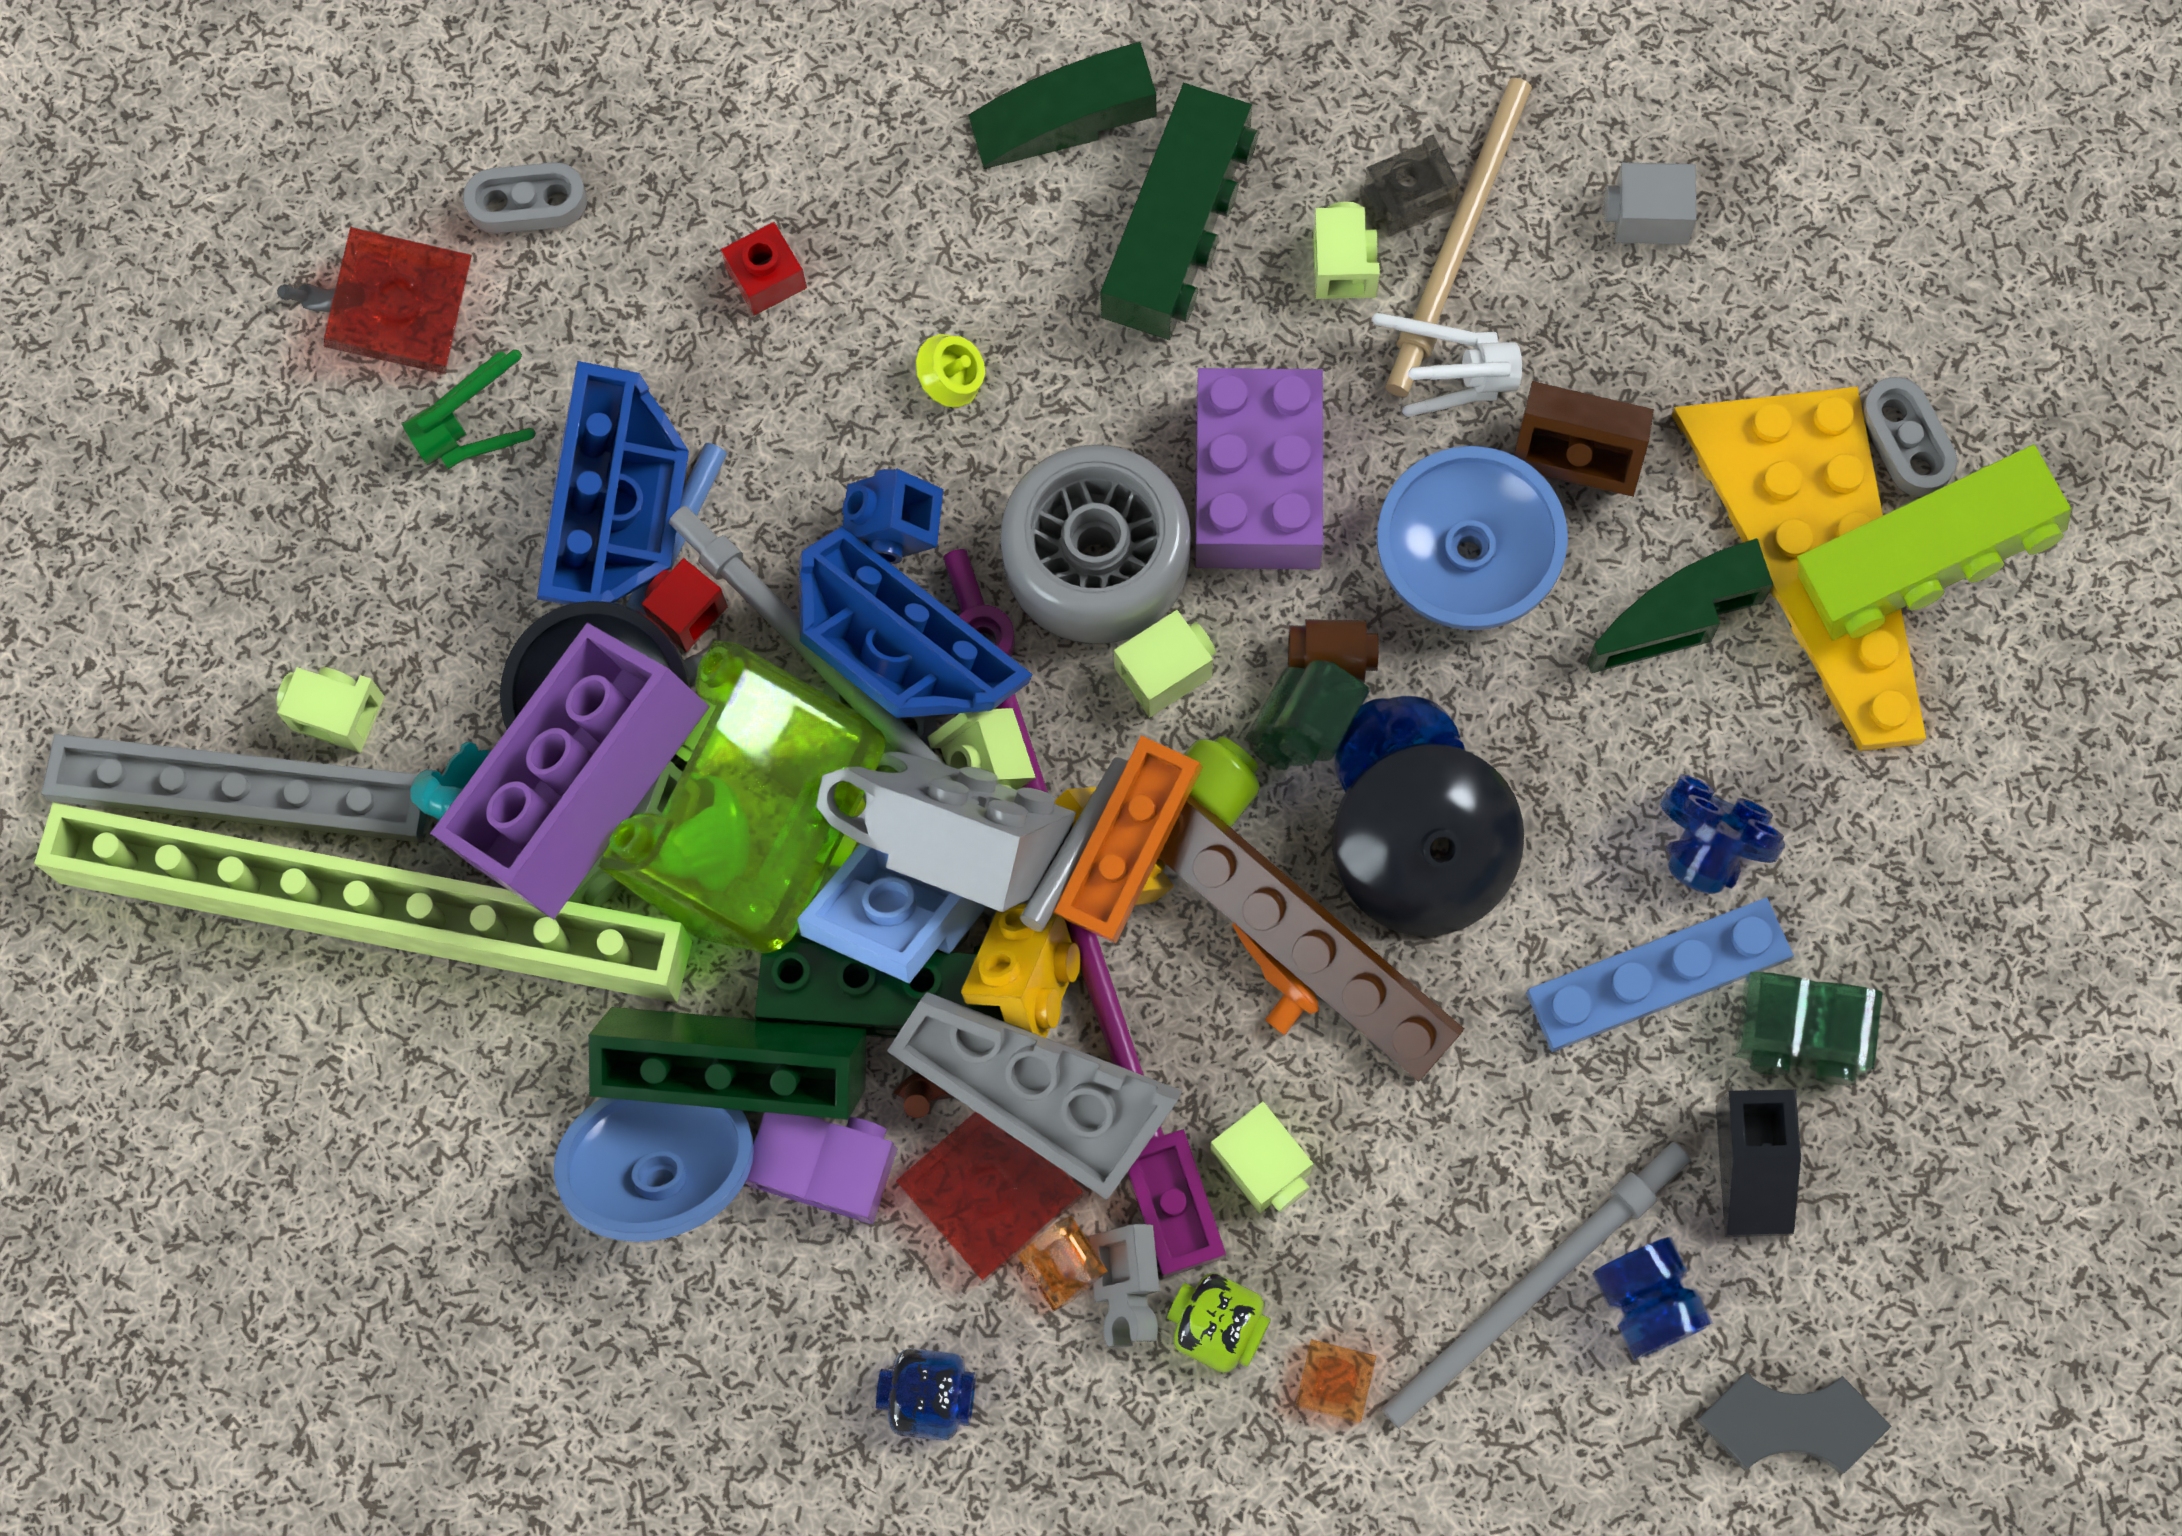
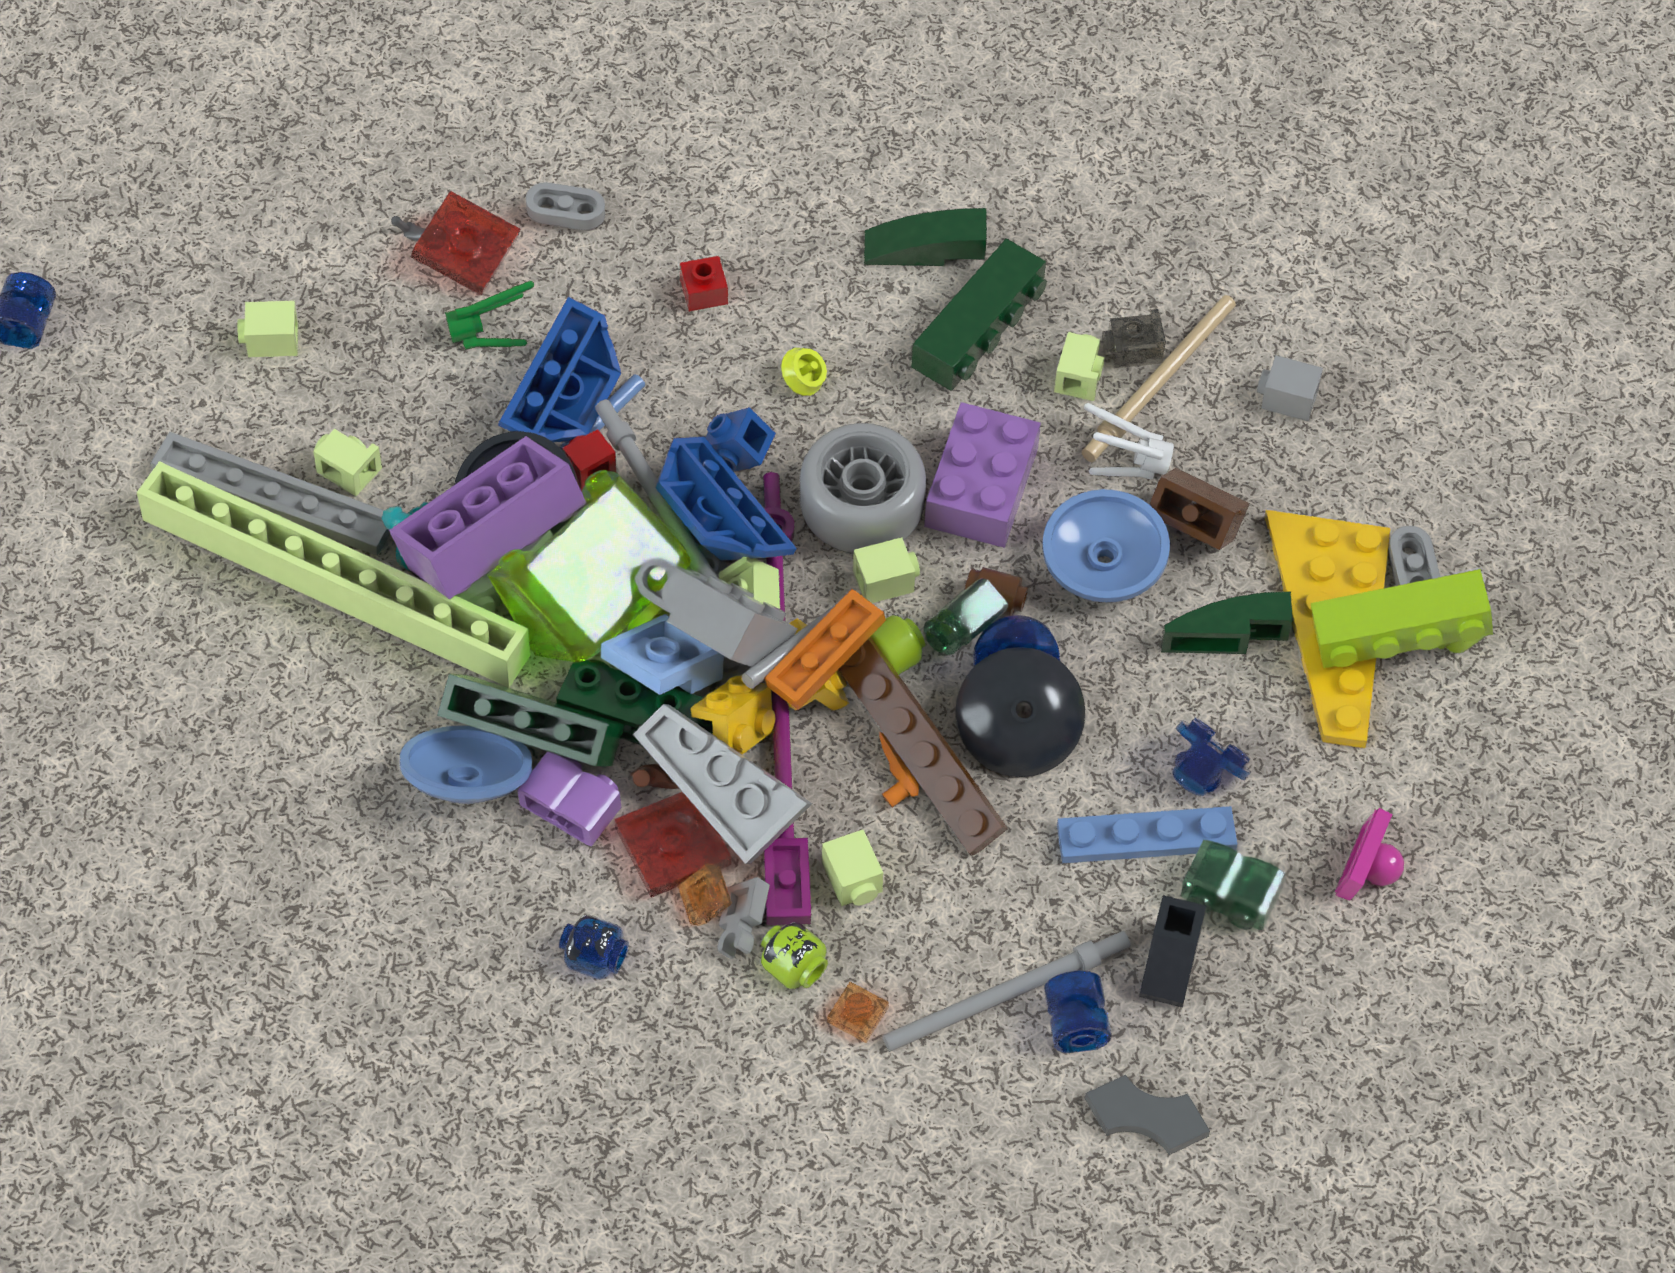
camera: 10 degrees right, 15 degrees down
(151, 522) = (269, 329): none -> yellowish green brick
(1986, 924) = (1370, 858): none -> dark pink tile

